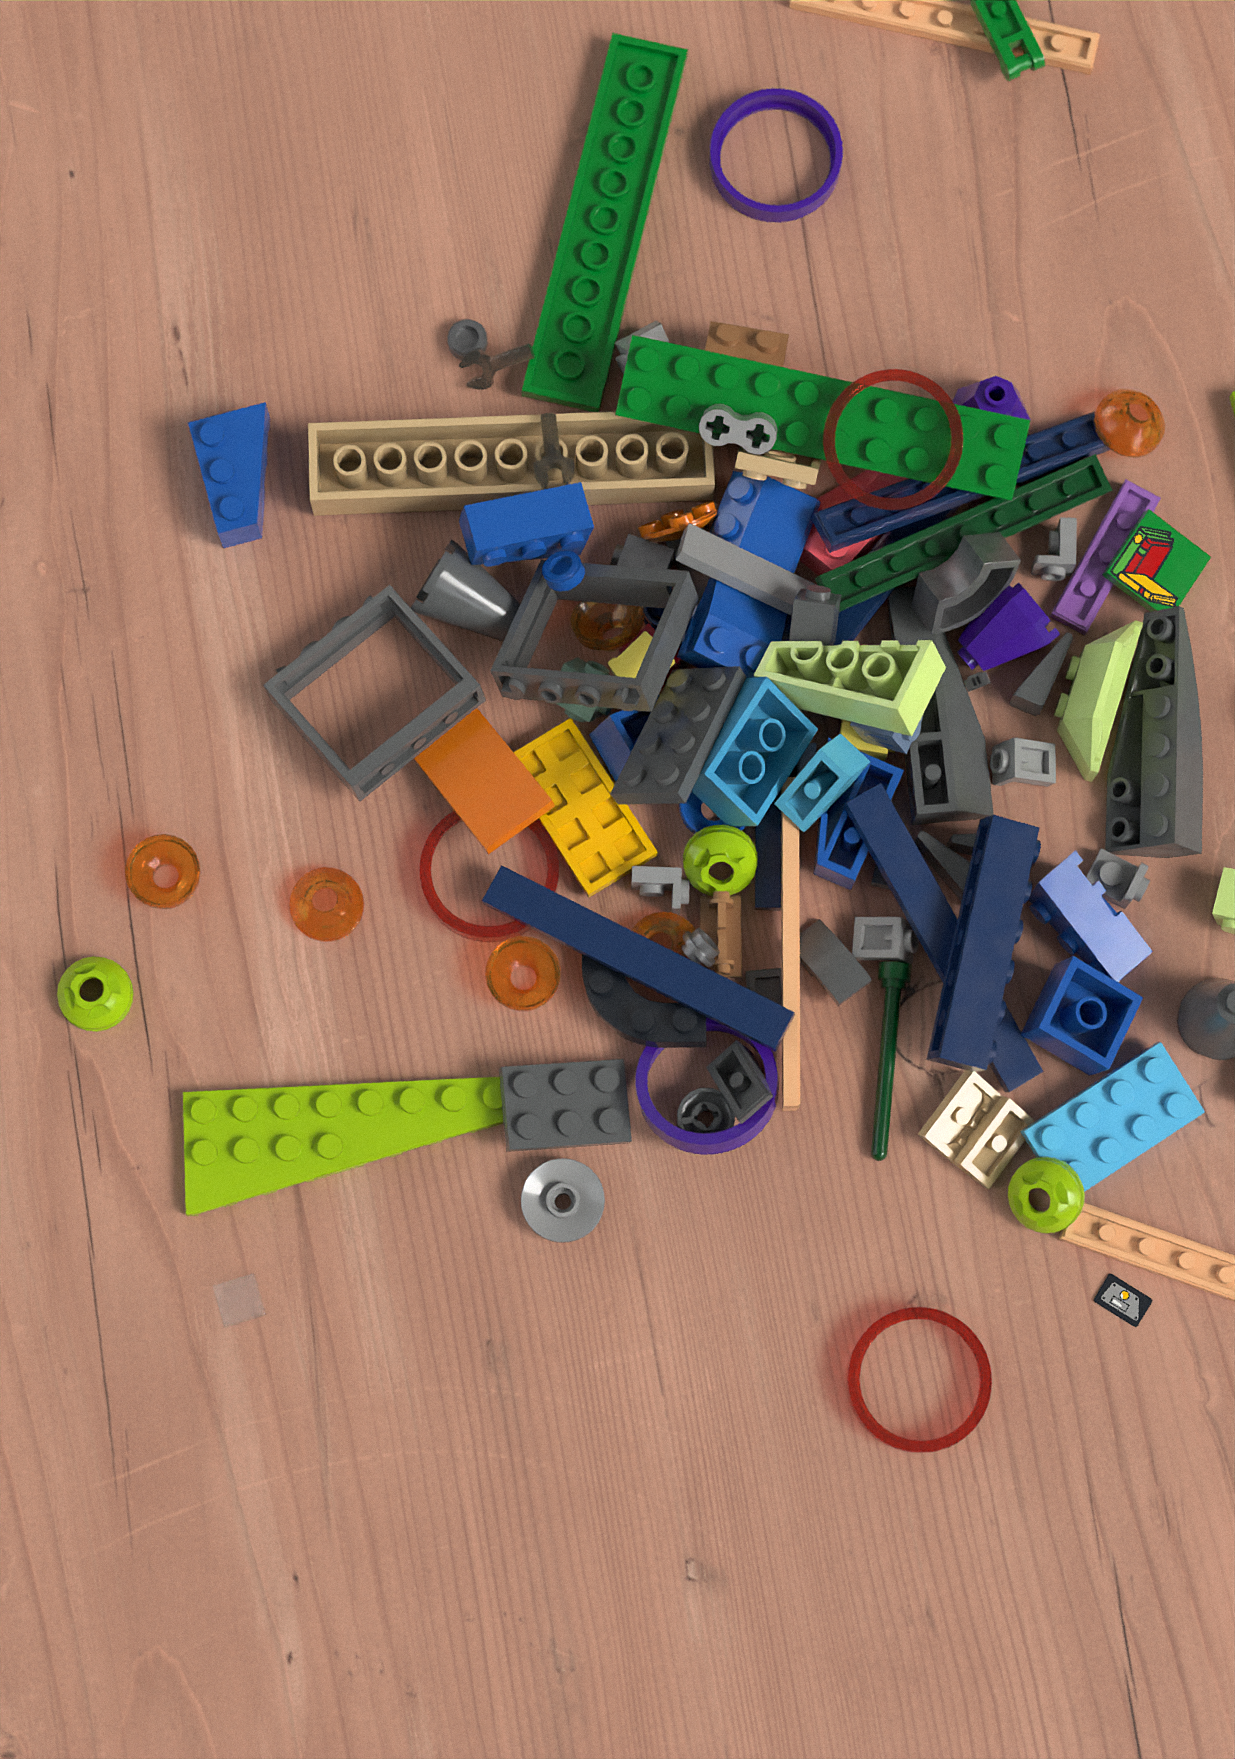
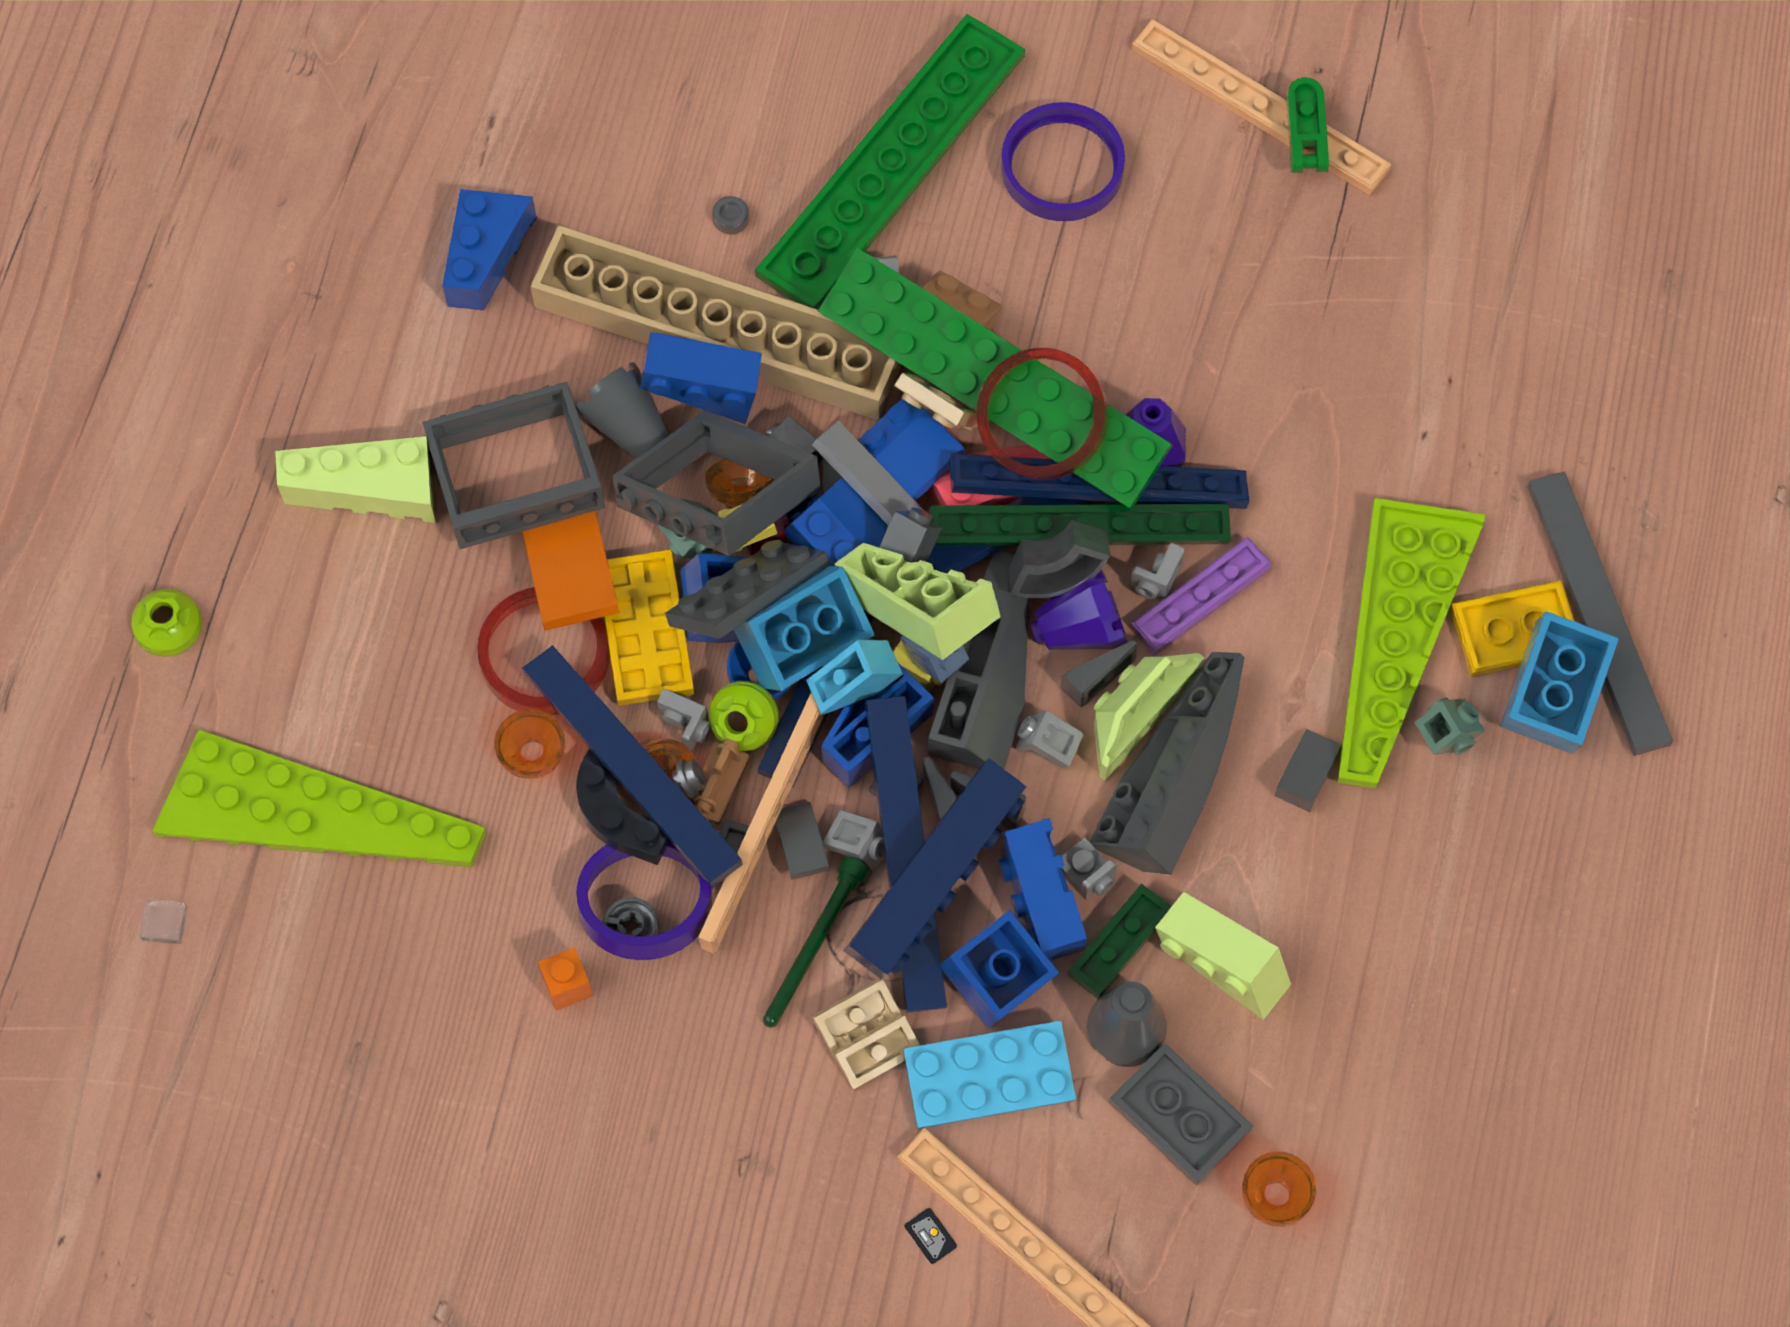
camera: 25 degrees right, 10 degrees down
(149, 857) = (267, 527): clear orange piece -> none
(225, 766) = (363, 477): none -> yellowish green wedge
(331, 924) = (396, 640): clear orange piece -> none
(494, 363) = (739, 240): clear smoke bar -> none
(553, 456) = (749, 327): clear smoke bar -> none
(560, 1178) = (470, 929): light grey dish -> none
(563, 570) = (716, 422): blue tile -> none
(565, 1105) = (515, 868): dark grey plate -> none
(666, 1196) = (565, 978): none -> orange brick
(676, 522) = (813, 422): orange dish -> none
(738, 429) = (912, 356): light grey axle -> none
(740, 1080) = (672, 901): dark grey slope -> none
(868, 1421) = (728, 1288): clear red piece -> none
(976, 681) = (1038, 654): flat silver piece -> none
(1059, 1182) = (912, 1116): lime piece -> none
(1122, 430) = (1267, 500): clear orange piece -> none
(1156, 564) = (1242, 616): tile -> none
(1179, 938) = (1119, 941): none -> dark green plate

